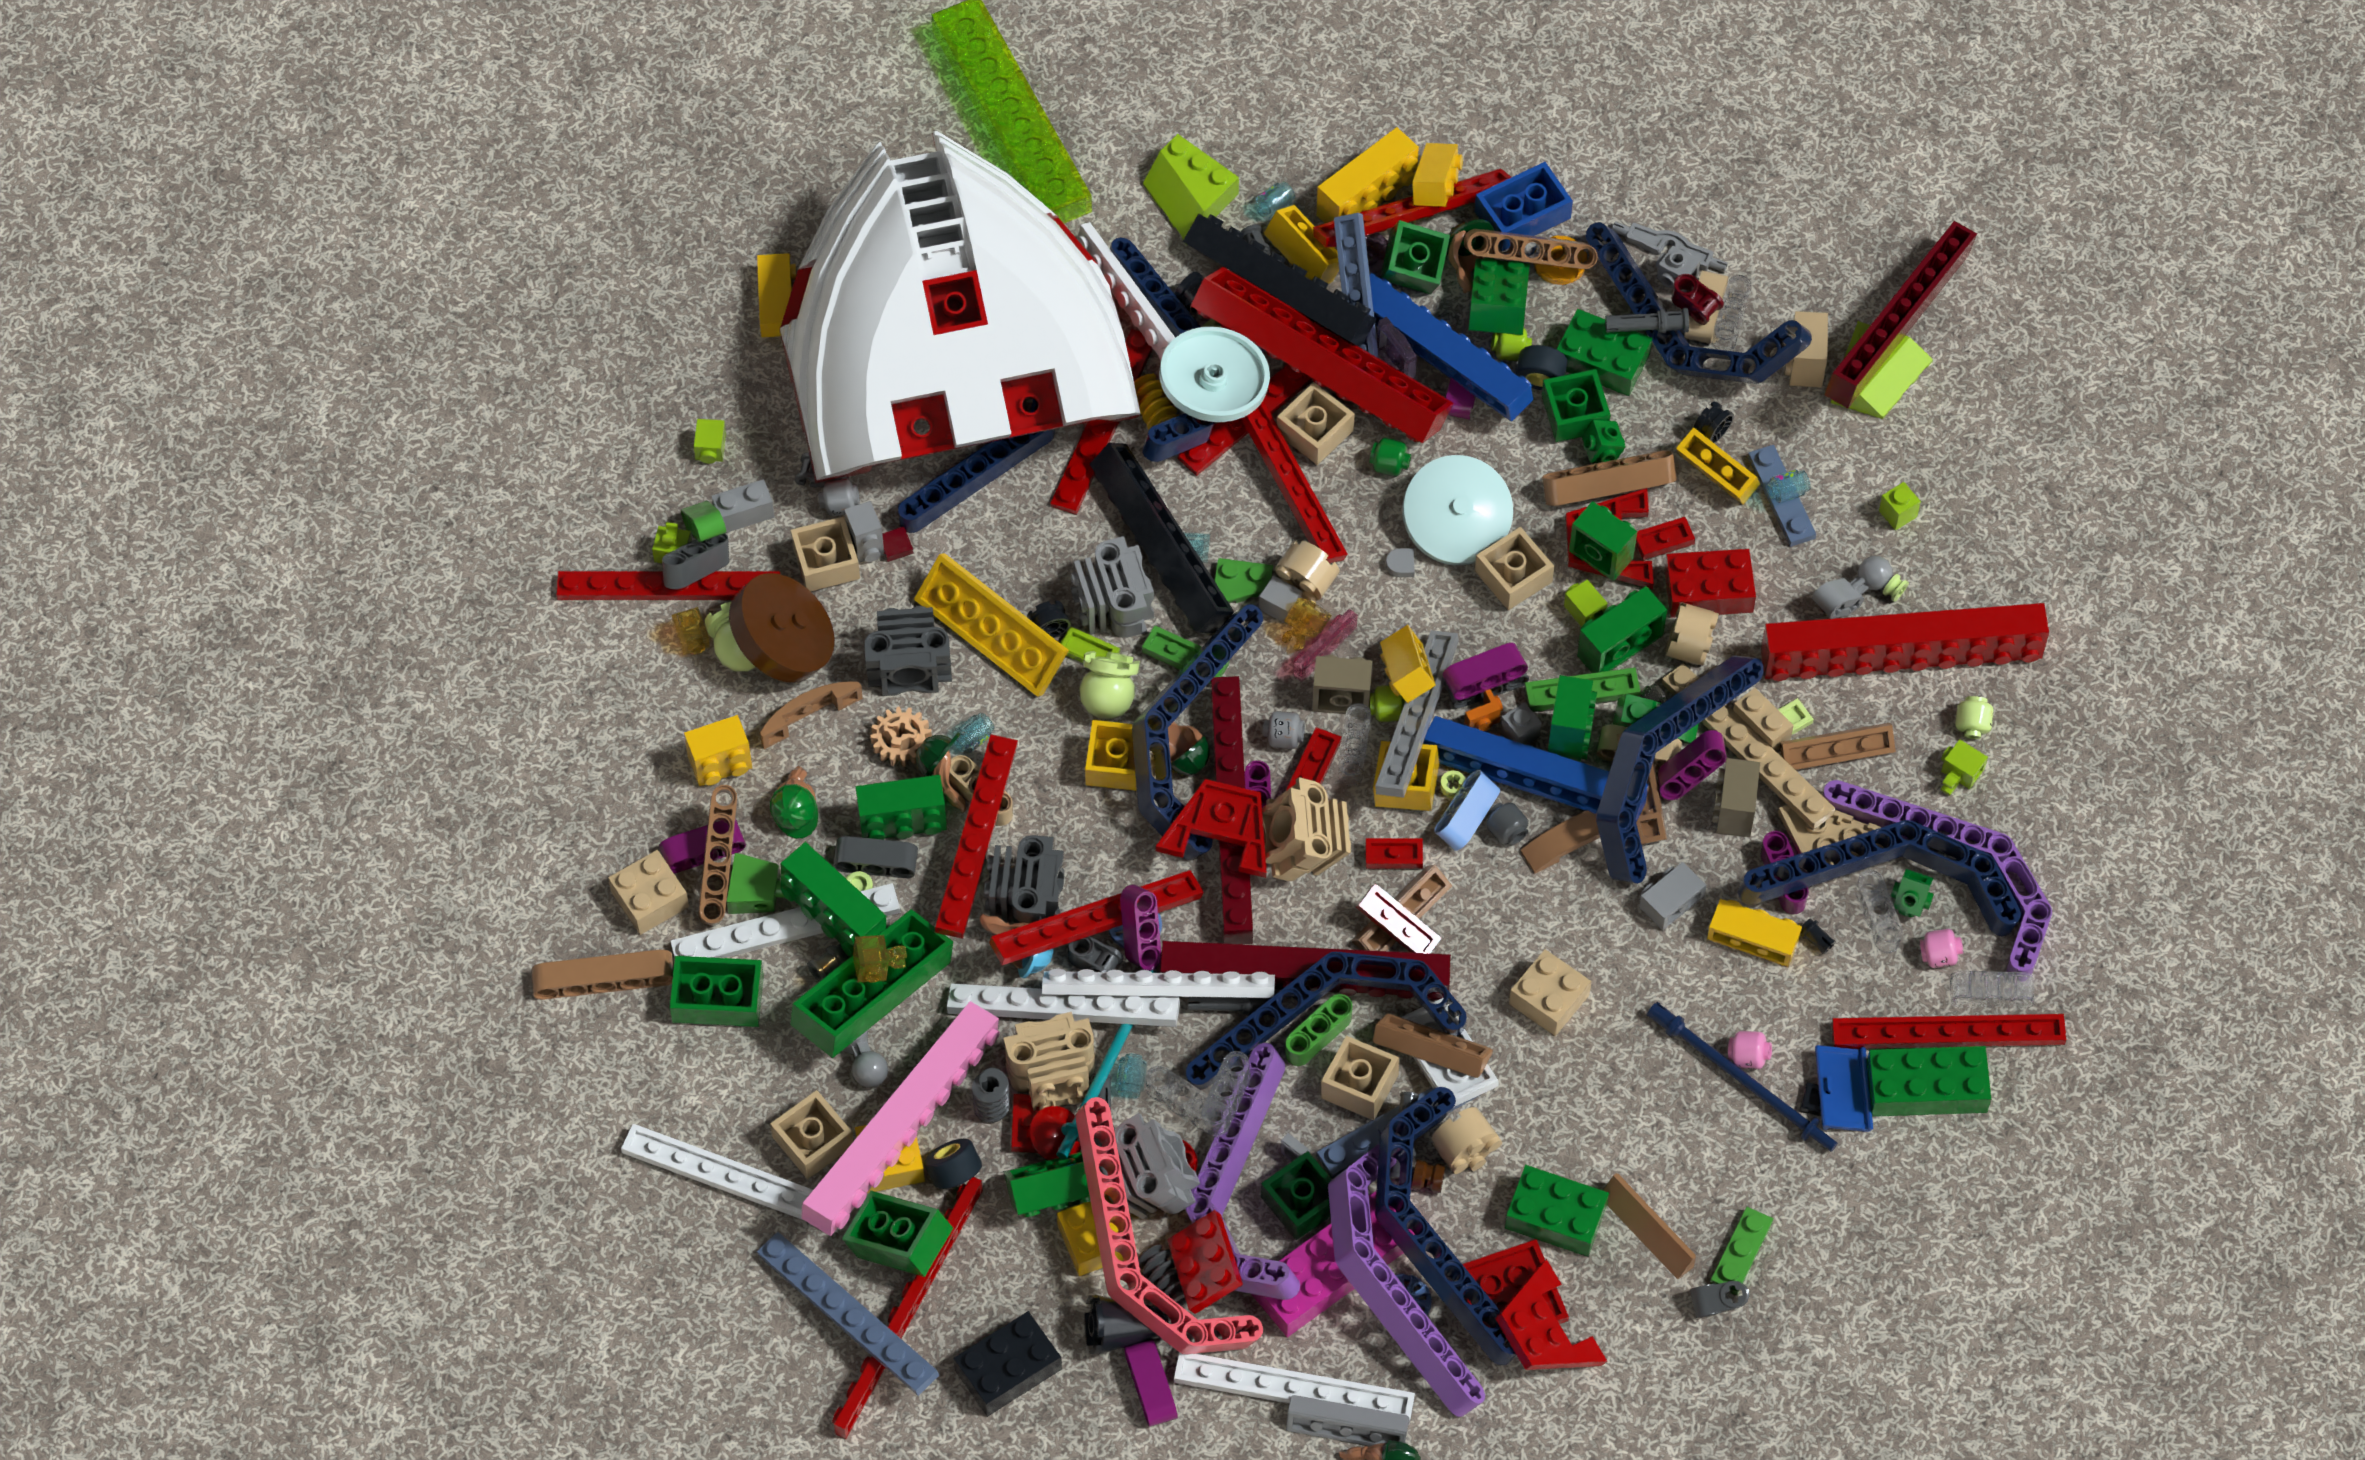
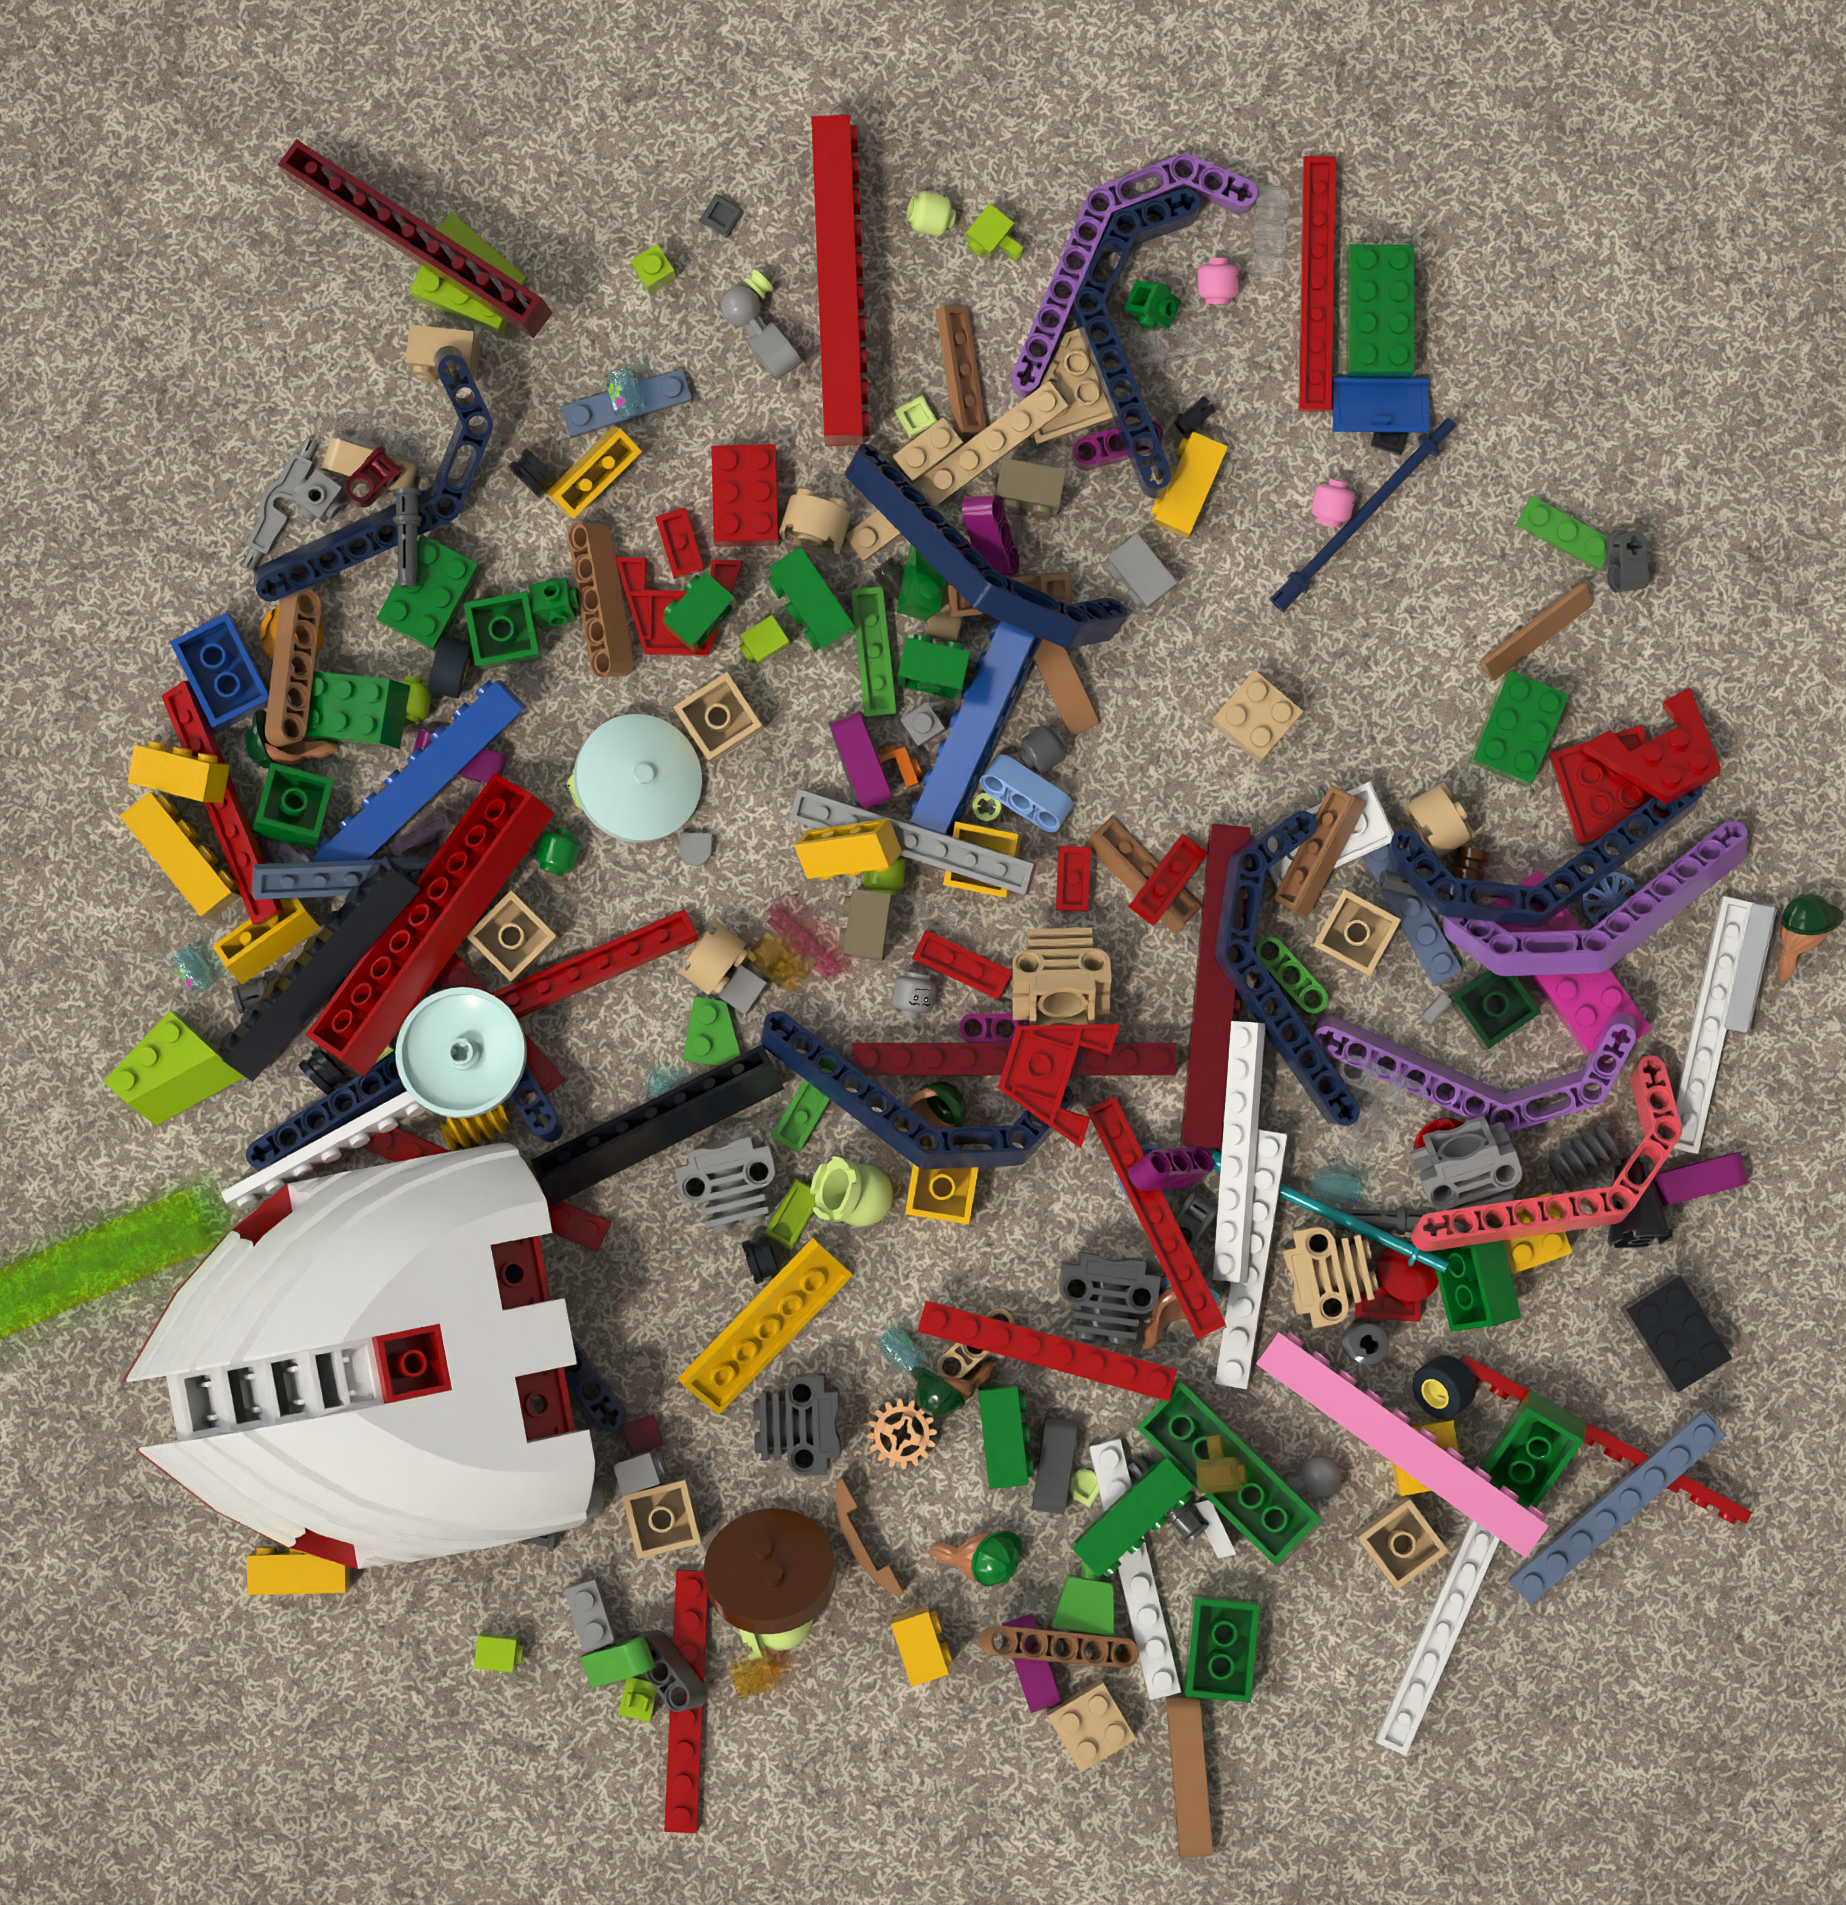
camera: 90 degrees left, 25 degrees up
(1204, 1262) = (1586, 1115): red plate -> none
(1953, 560) = (721, 215): none -> dark grey tile

